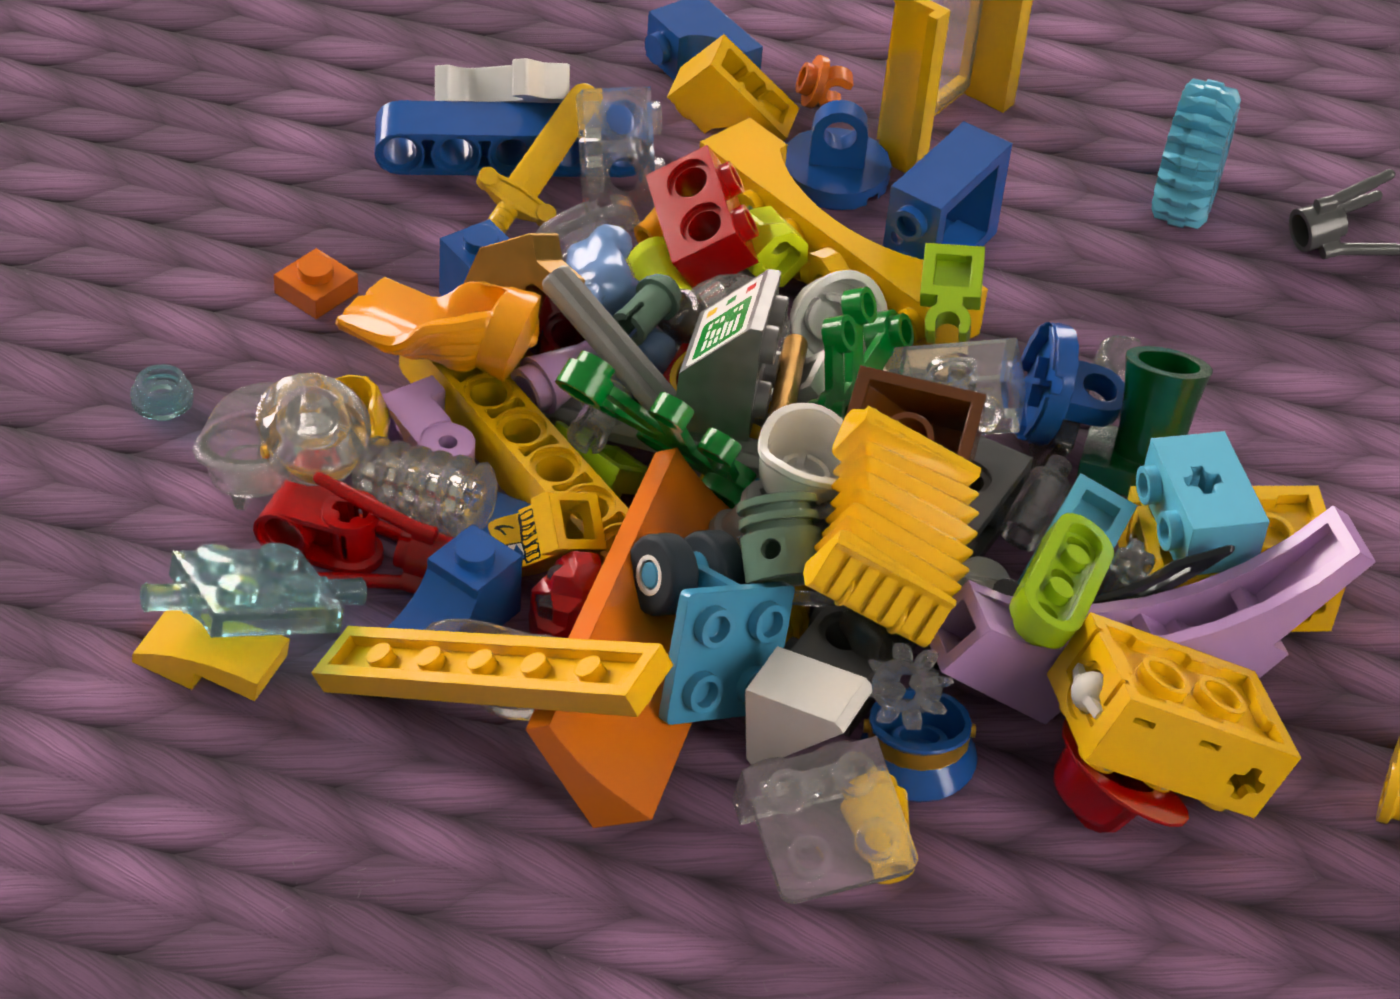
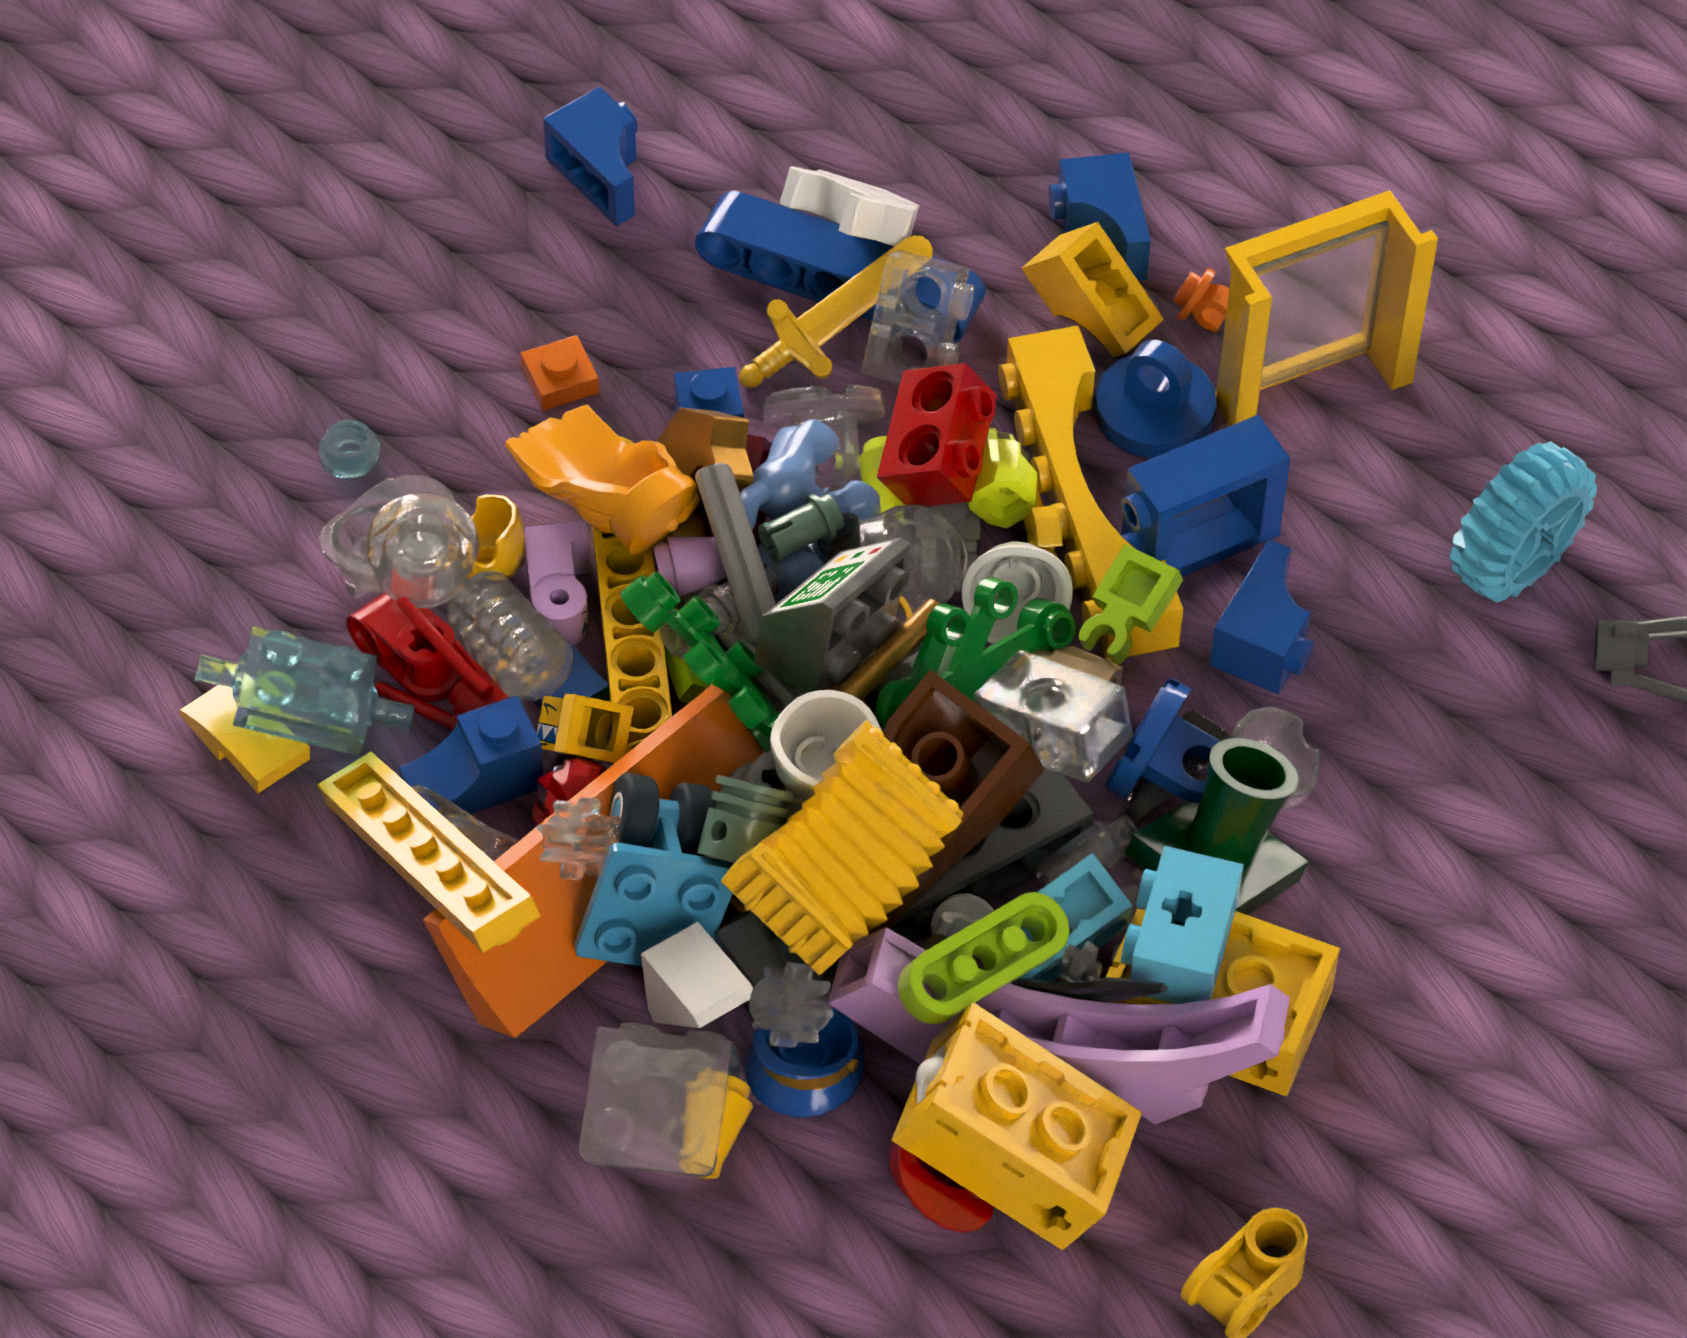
camera: 30 degrees right, 10 degrees up
(237, 110) = (591, 147): none -> blue arch
(637, 603) = (578, 837): none -> clear gear
(1047, 285) = (1262, 627): none -> blue arch

